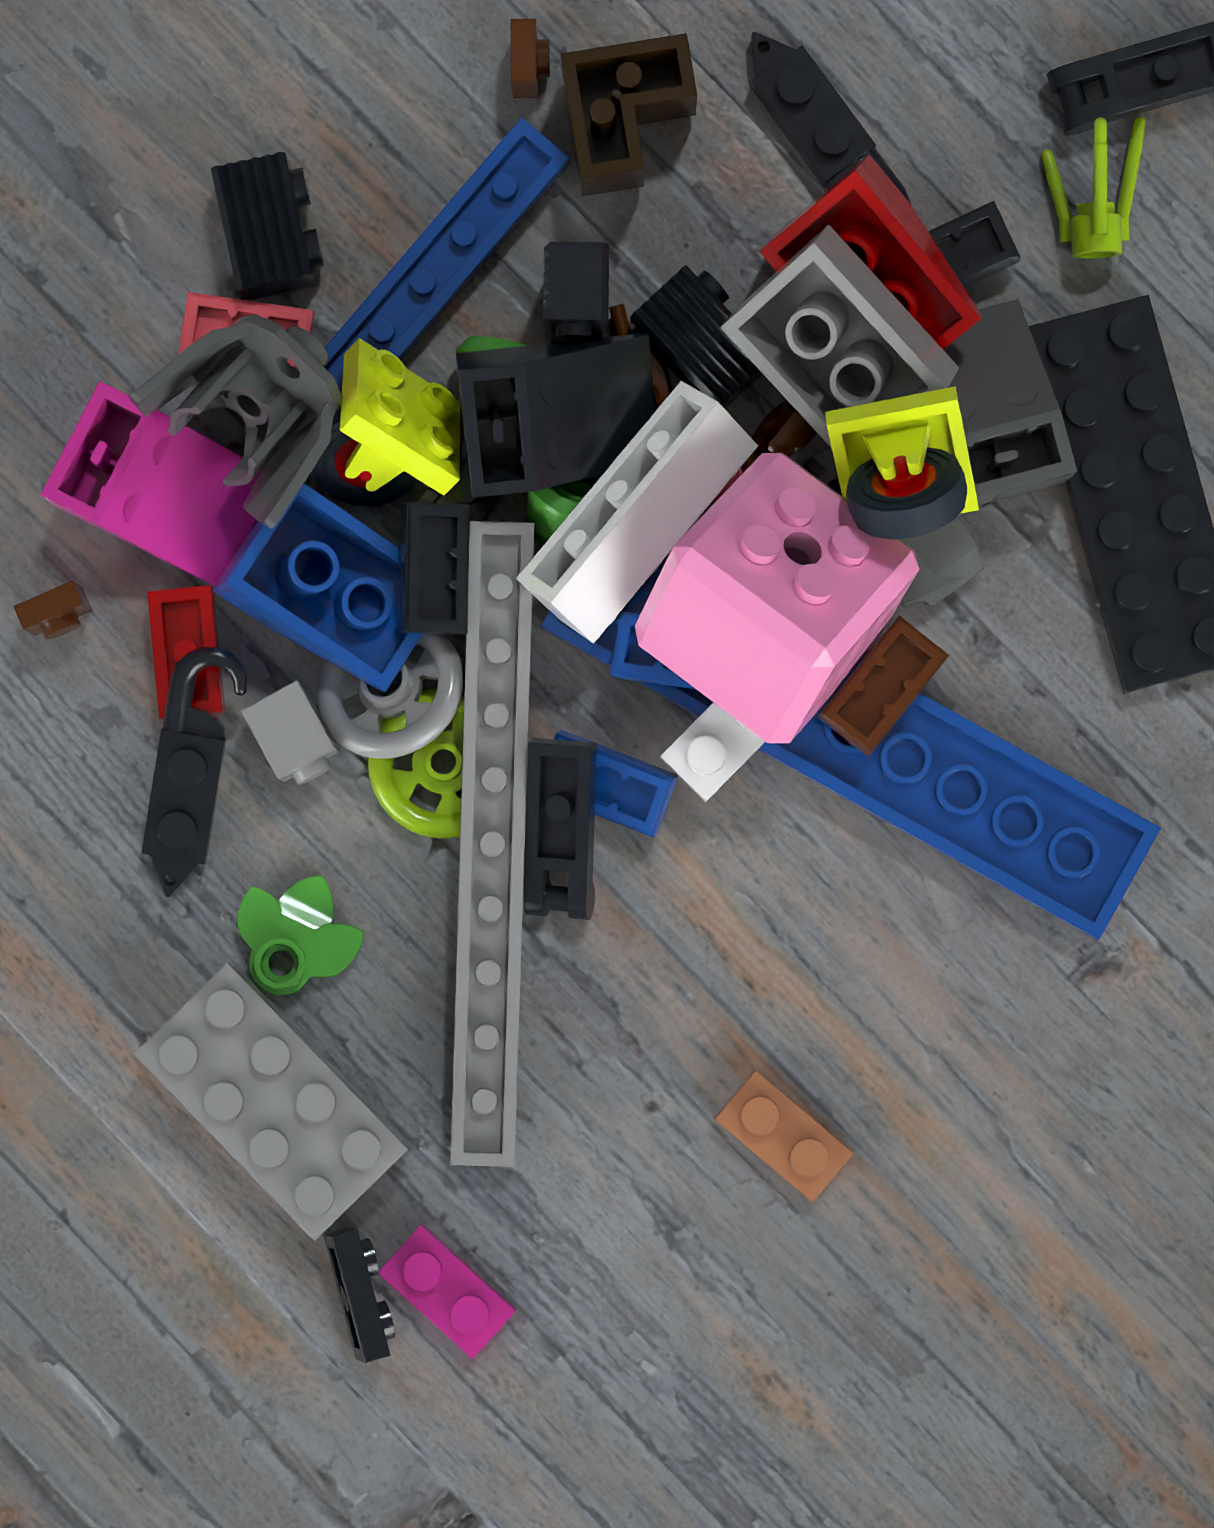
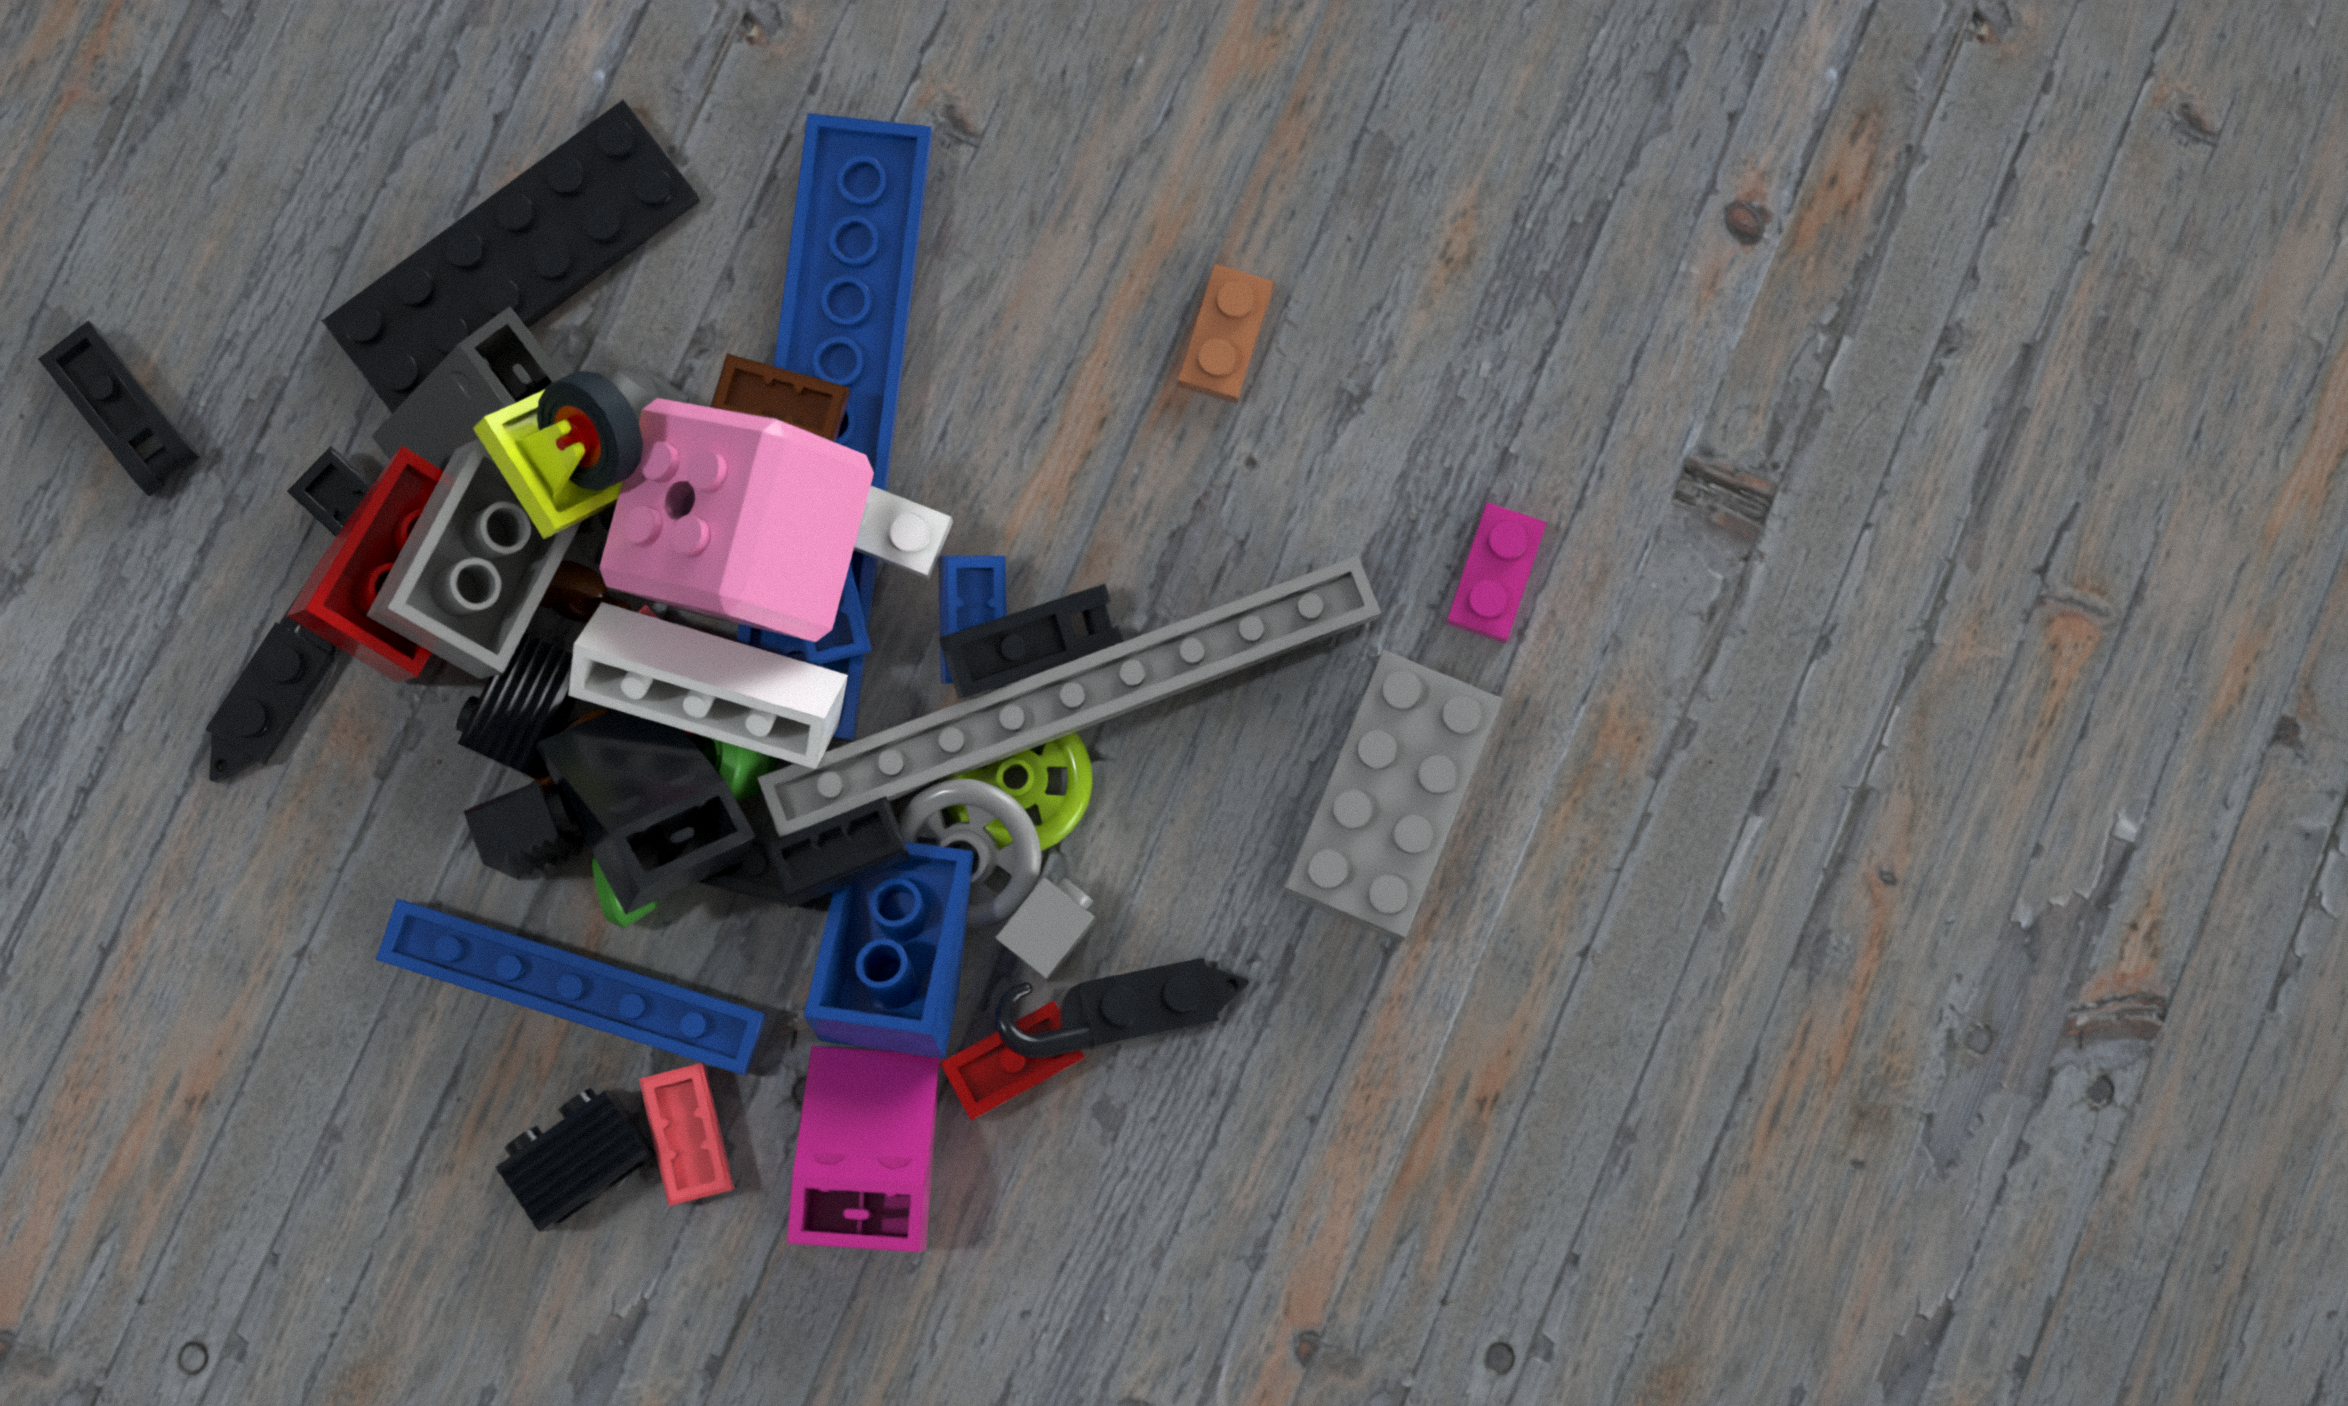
camera: 115 degrees left, 5 degrees down
(54, 611) = (1025, 1200): reddish brown plate -> none
(279, 405) = (746, 1055): dark grey piece -> none
(302, 927) = (1224, 844): bright green plate -> none
(366, 1319) = (1551, 632): black plate -> none
(389, 432) = (728, 954): neon yellow plate -> none
(528, 58) = (316, 979): reddish brown plate -> none
(615, 91) = (326, 881): dark brown brick -> none
(1096, 228) = (274, 390): lime plant -> none

